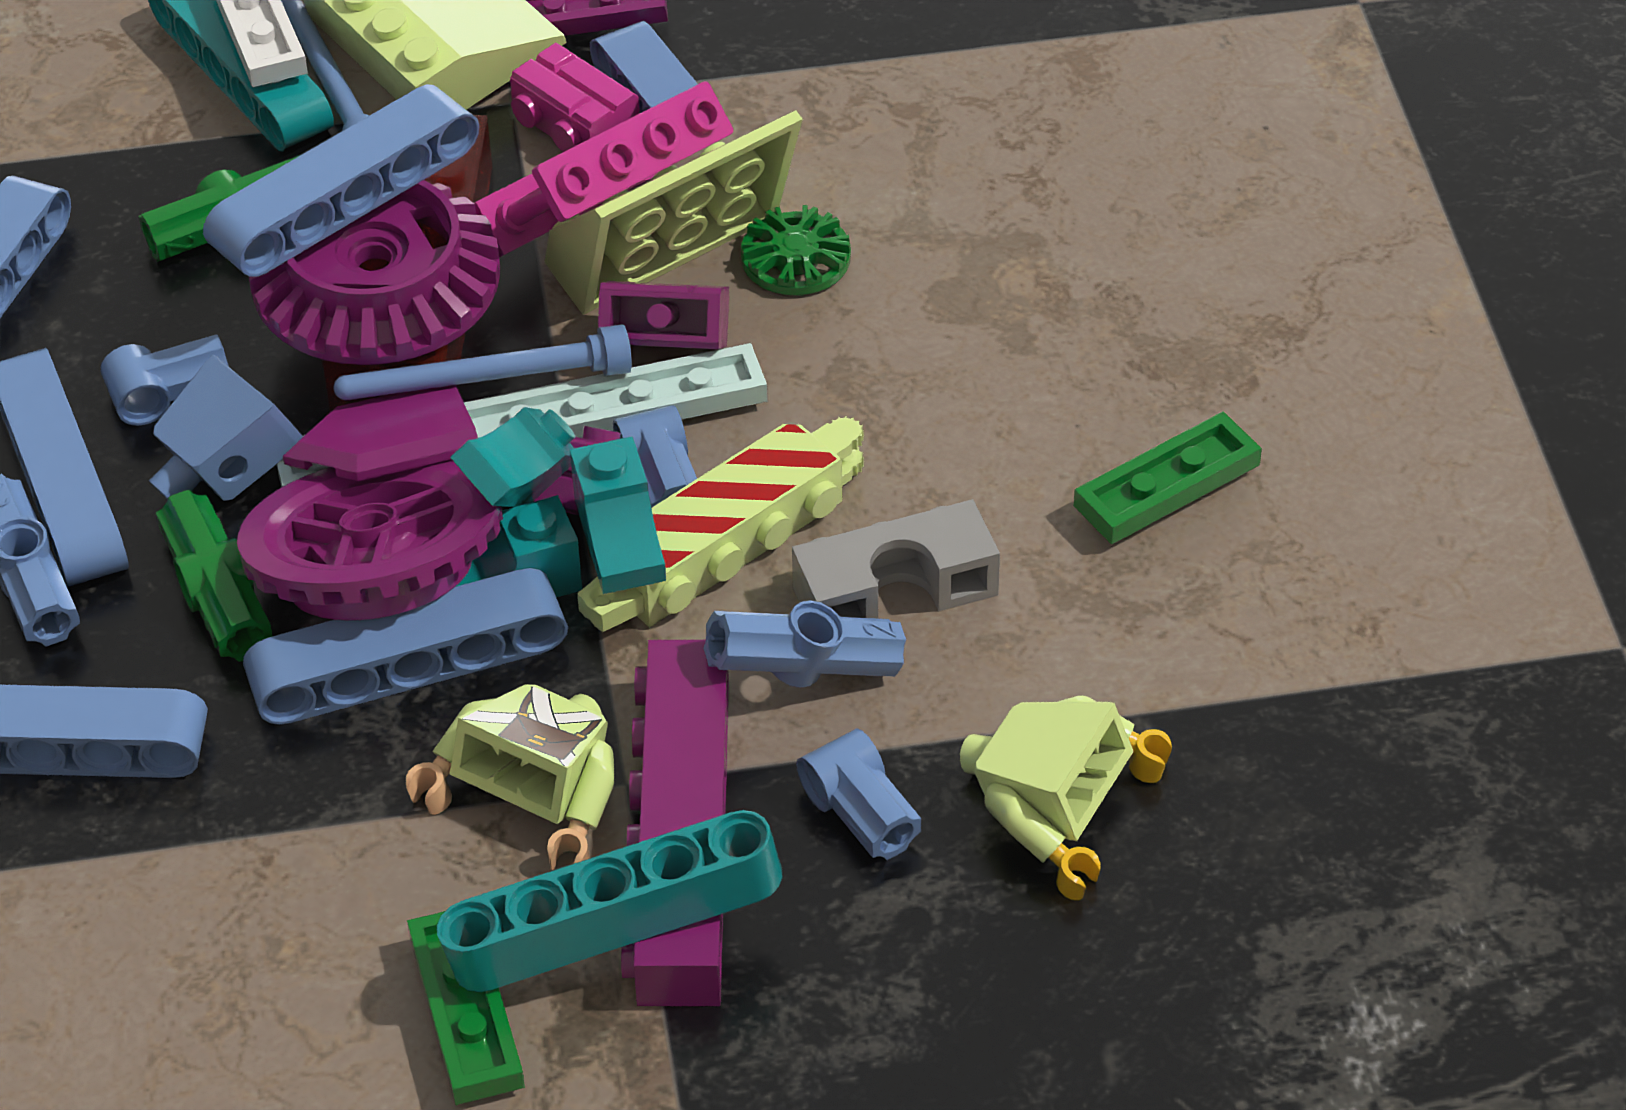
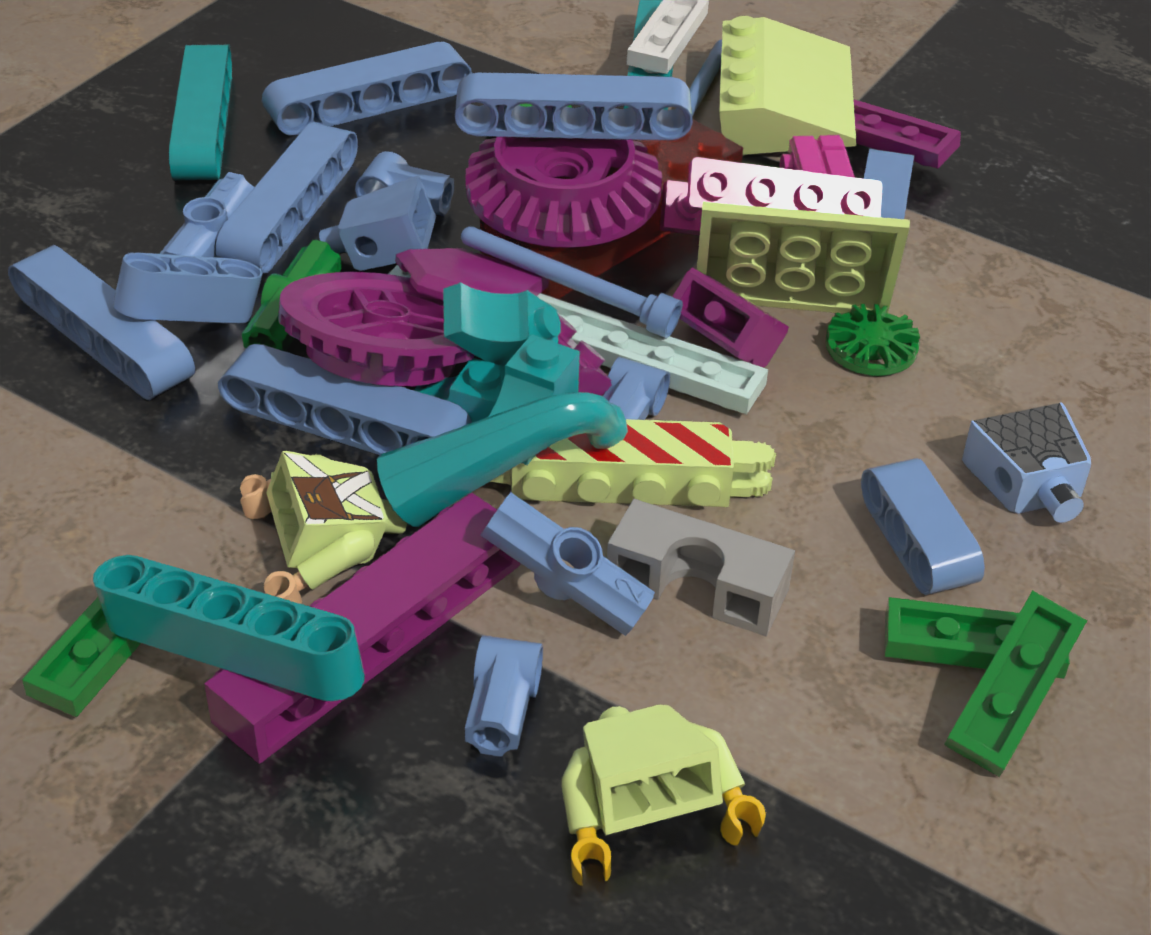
camera: 40 degrees right, 5 degrees down
(118, 632) = (186, 288): none -> medium blue beam
(614, 621) = (449, 466): none -> teal animal
(1028, 406) = (922, 526): none -> medium blue beam
(1056, 283) = (1031, 460): none -> torso
(1244, 493) = (1015, 683): none -> green plate

